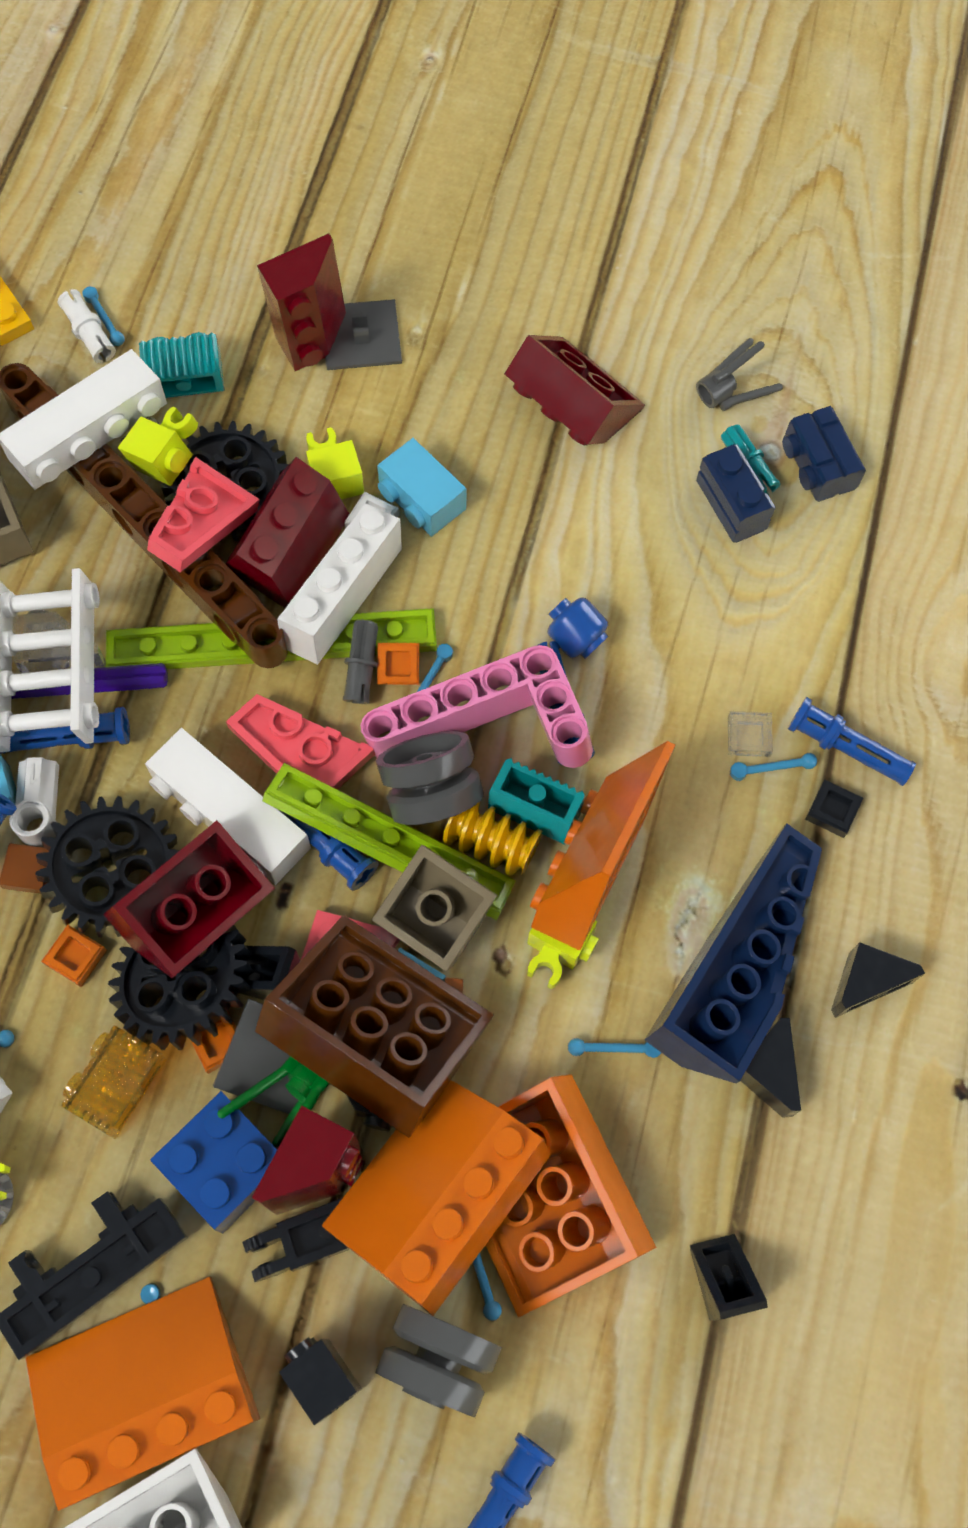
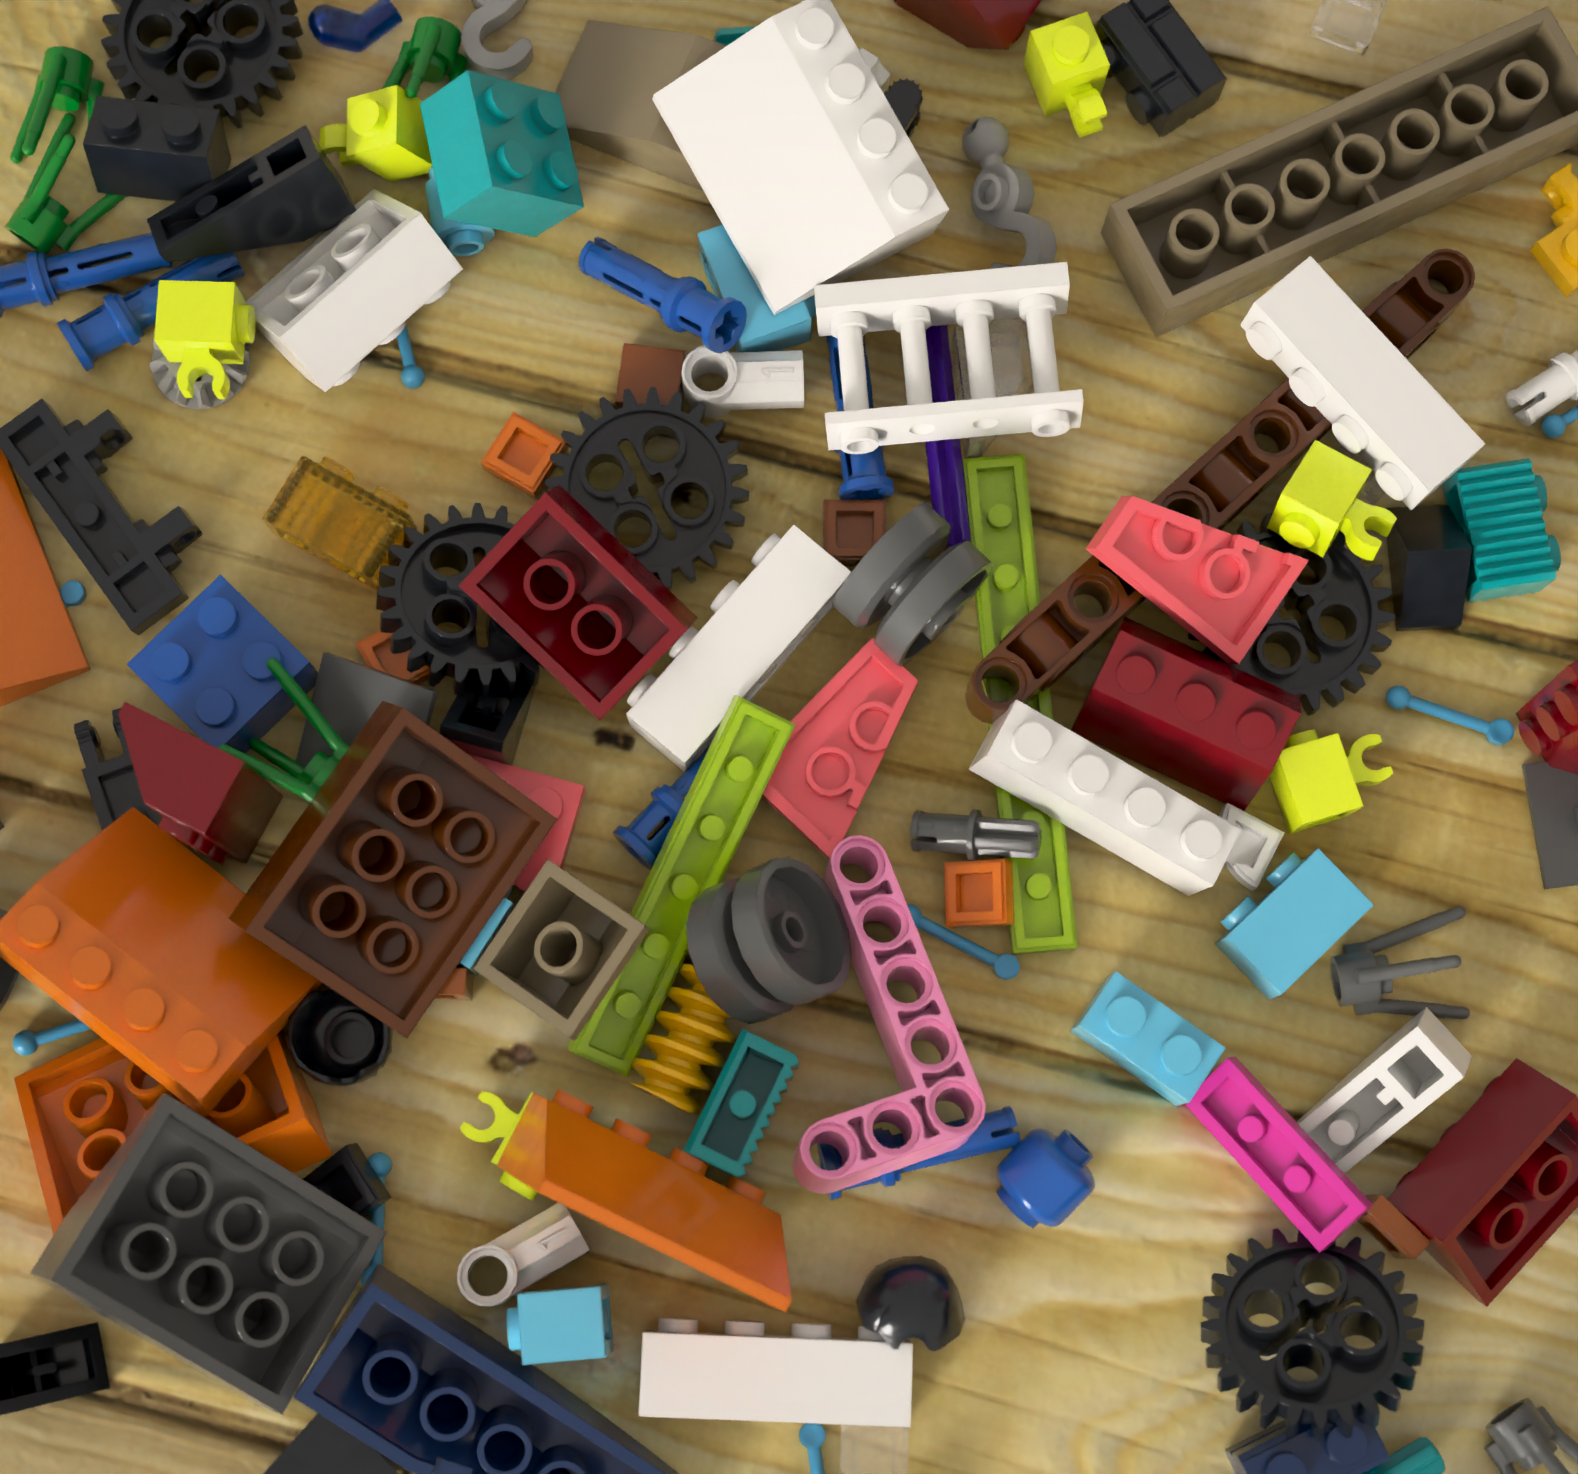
camera: 90 degrees right, 10 degrees up
(148, 735) = (852, 528): none -> dark orange tile
(193, 687) = (912, 584): none -> dark grey wheel
(205, 401) = (1428, 568): none -> black slope
(306, 379) = (1497, 732): none -> dark azure hinge
(454, 451) = (1362, 977): none -> dark grey plant
(492, 568) = (1147, 1039): none -> medium azure brick
(492, 1069) = (337, 1039): none -> black hair
(529, 449) = (1386, 1090): none -> white slope
(561, 499) = (1278, 1154): none -> dark pink plate
(594, 1068) = (350, 1181): none -> black tile
(602, 445) = (1392, 1229): none -> dark orange tile
(634, 944) = (528, 1252): none -> white piece
(646, 1145) = (211, 1254): none -> dark grey slope
(657, 703) = (911, 1300): none -> black hair
(680, 909) = (561, 1324): none -> medium azure brick
(696, 458) = (1349, 1378): none -> black gear
(705, 788) = (774, 1376): none -> white brick

